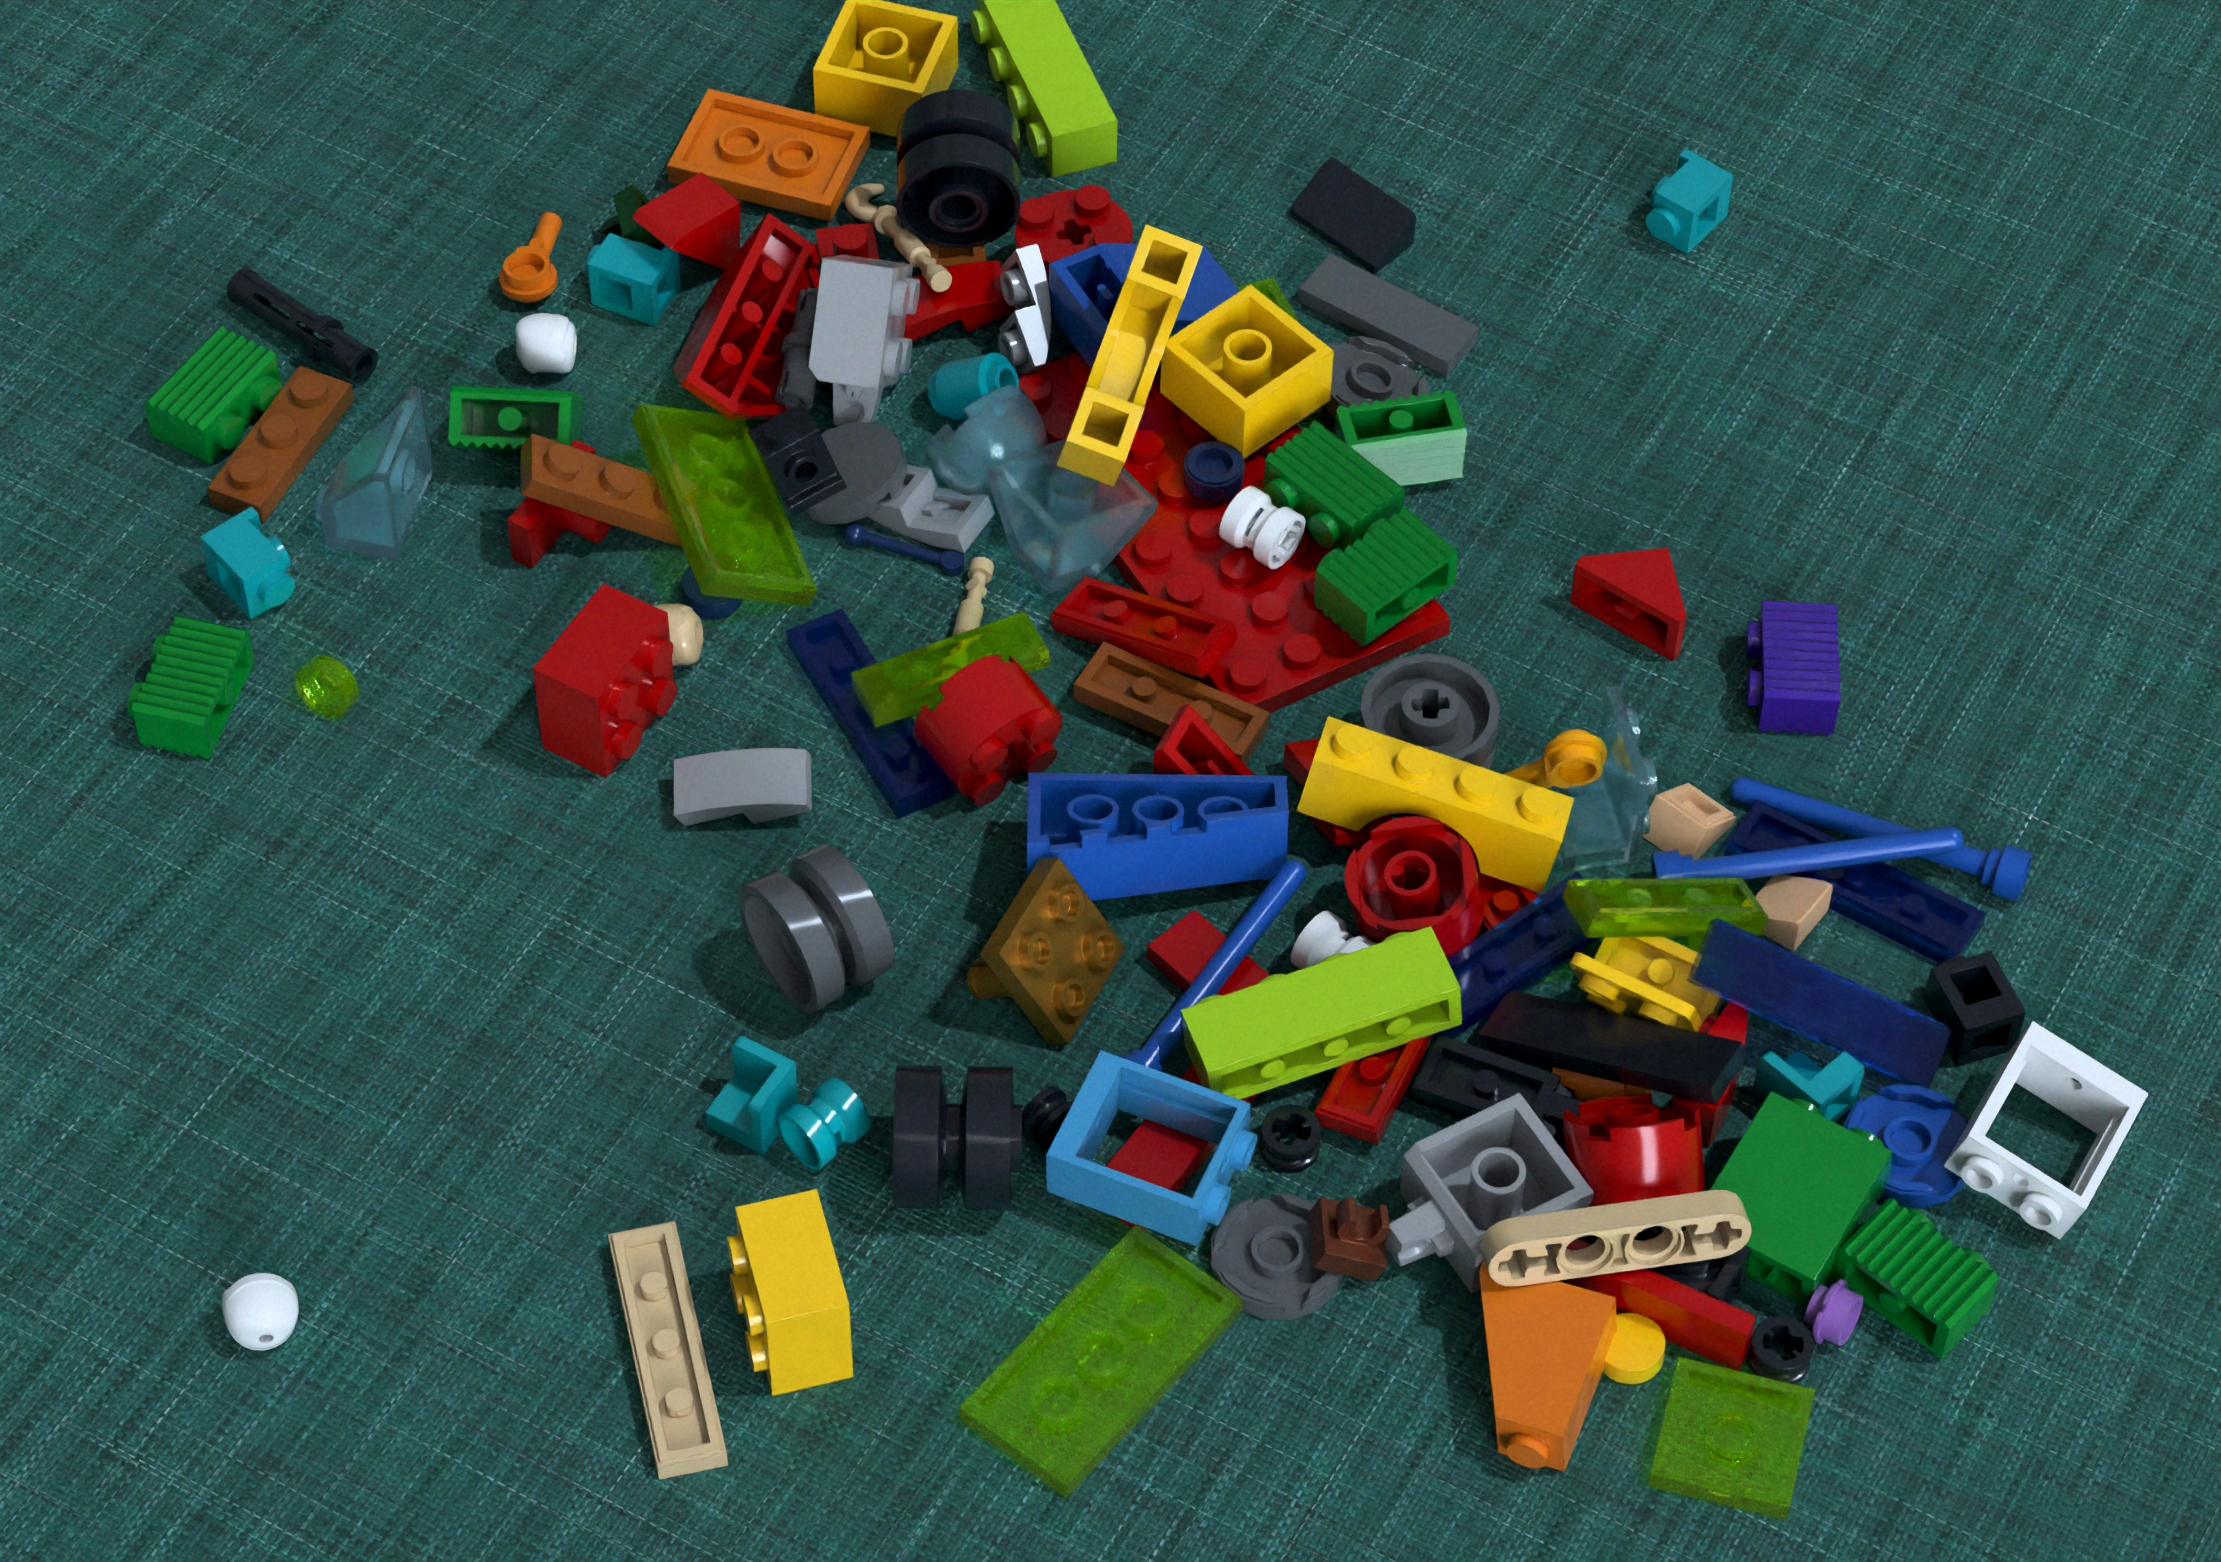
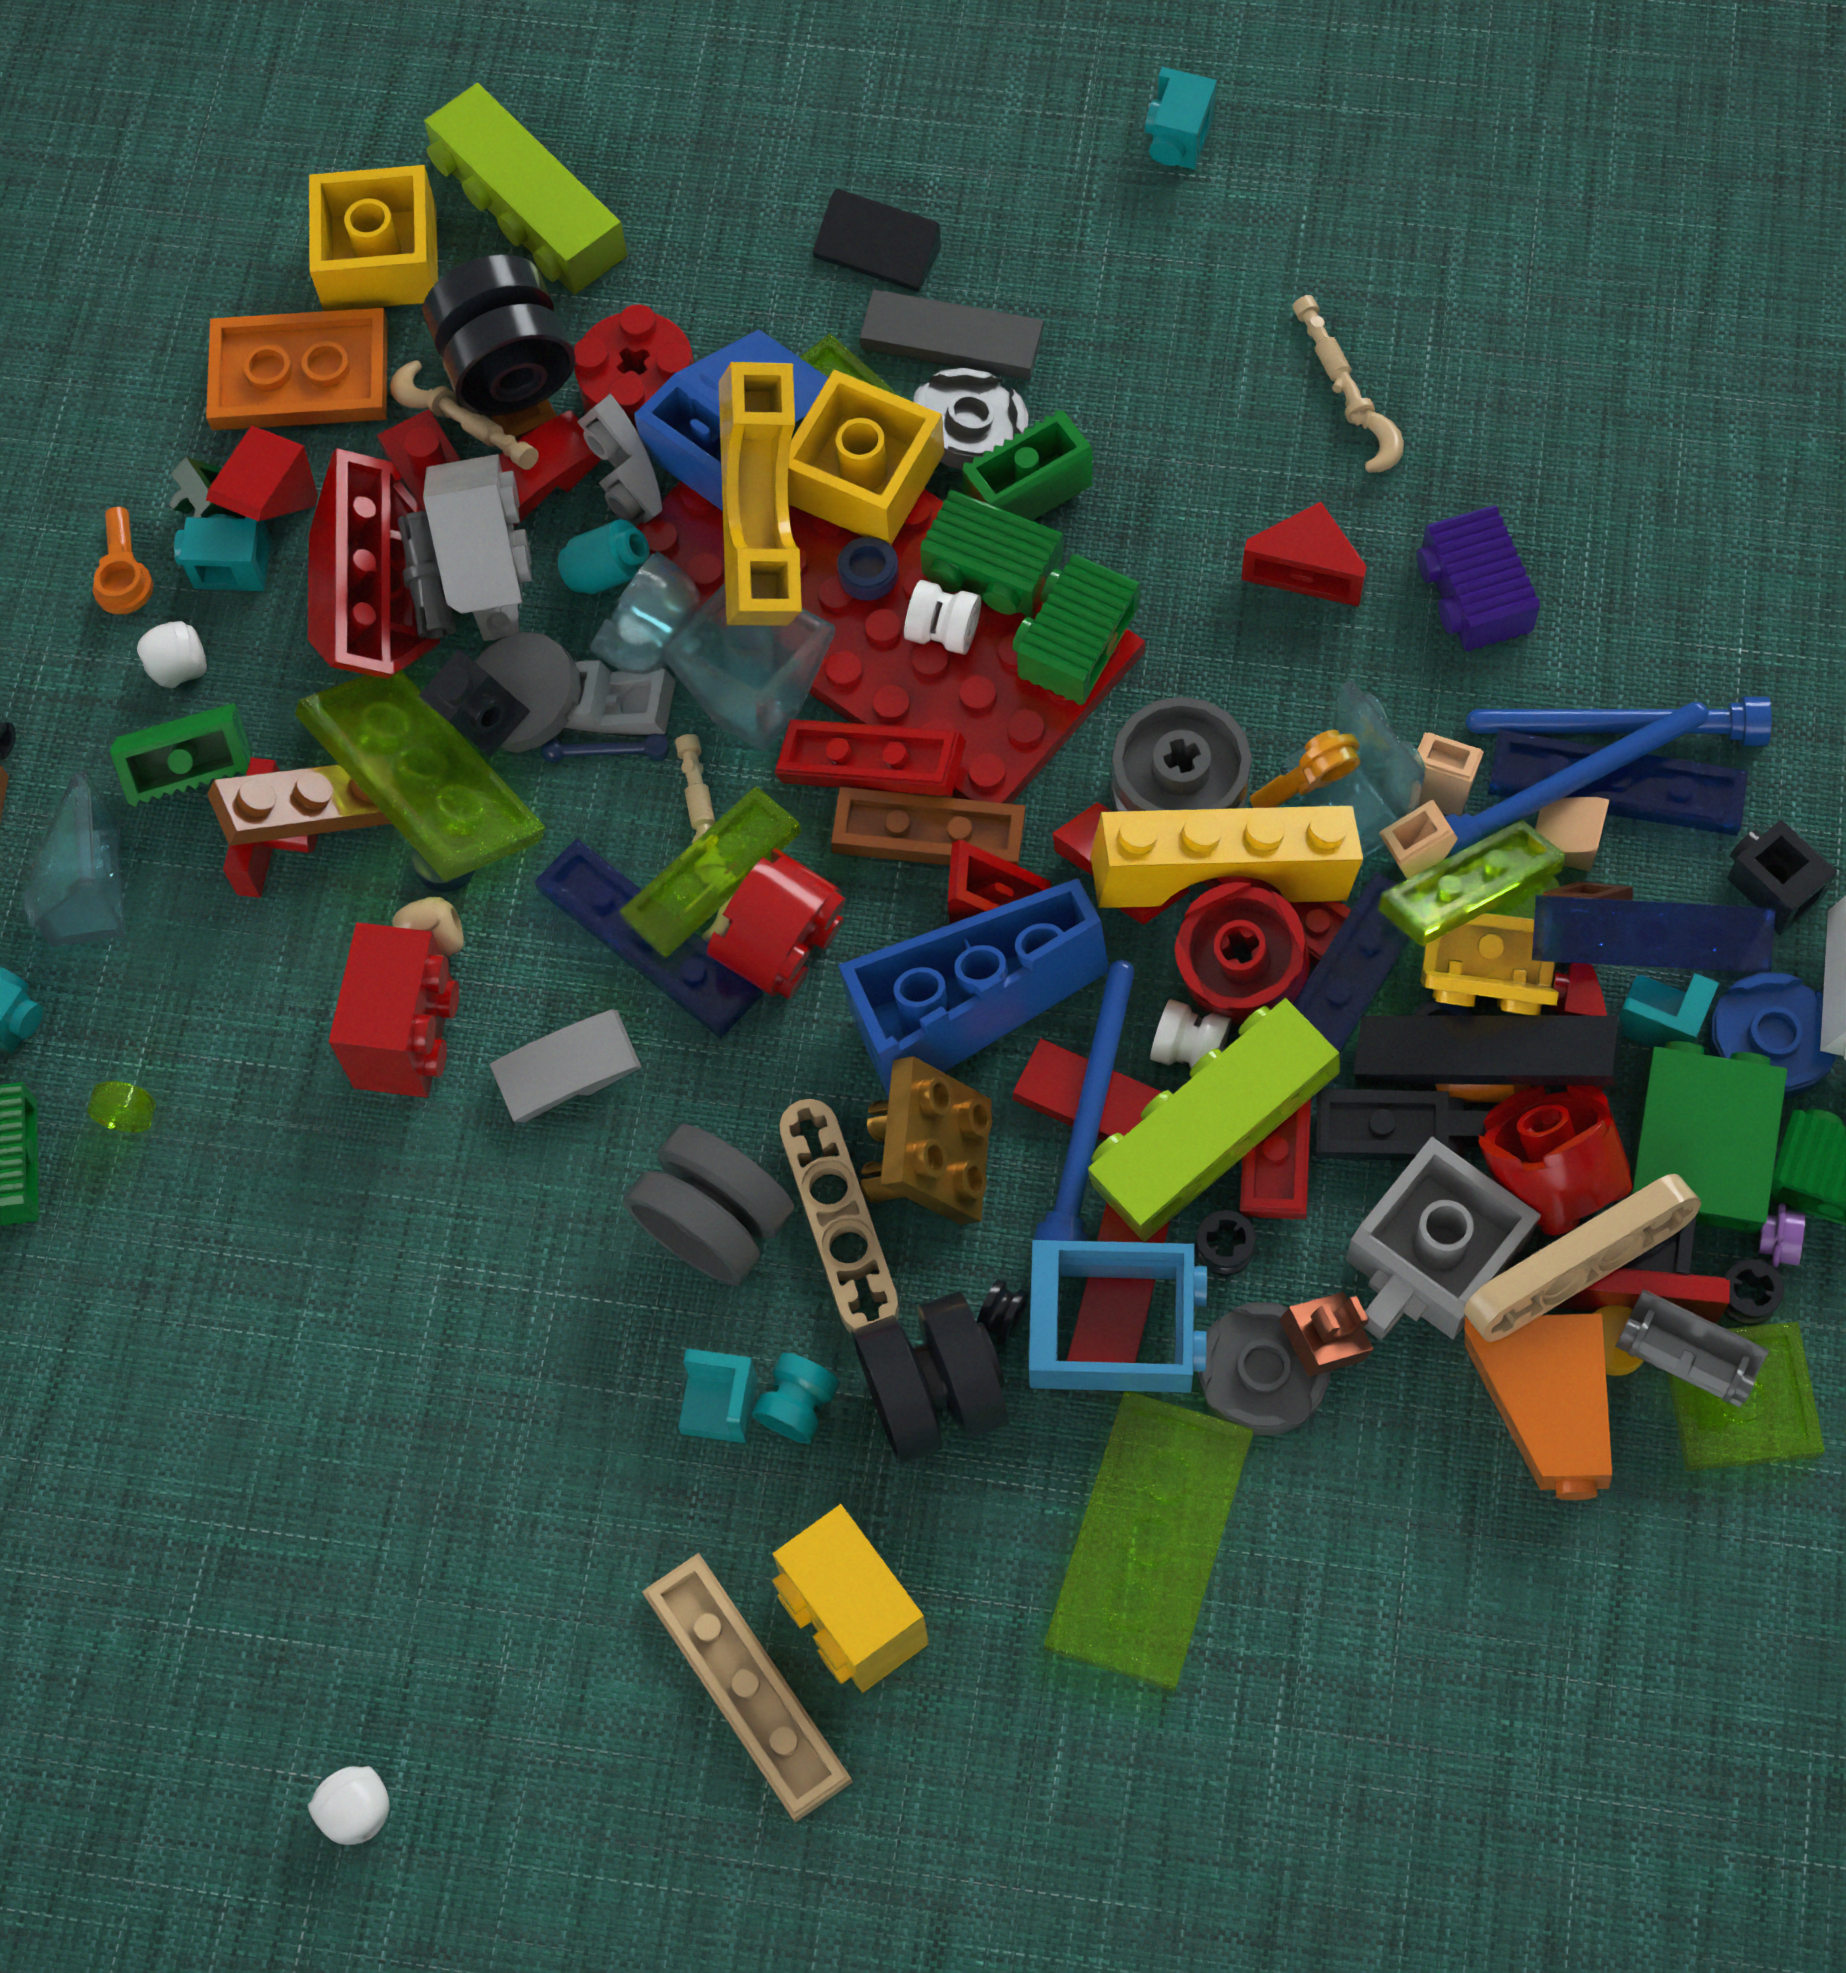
camera: 15 degrees left, 15 degrees up
(938, 996) = (844, 1216): none -> tan beam
(1631, 855) = (1419, 839): none -> light nougat slope
(1692, 1364) = (1692, 1348): none -> dark grey hinge
(1749, 495) = (1357, 409): none -> tan piece

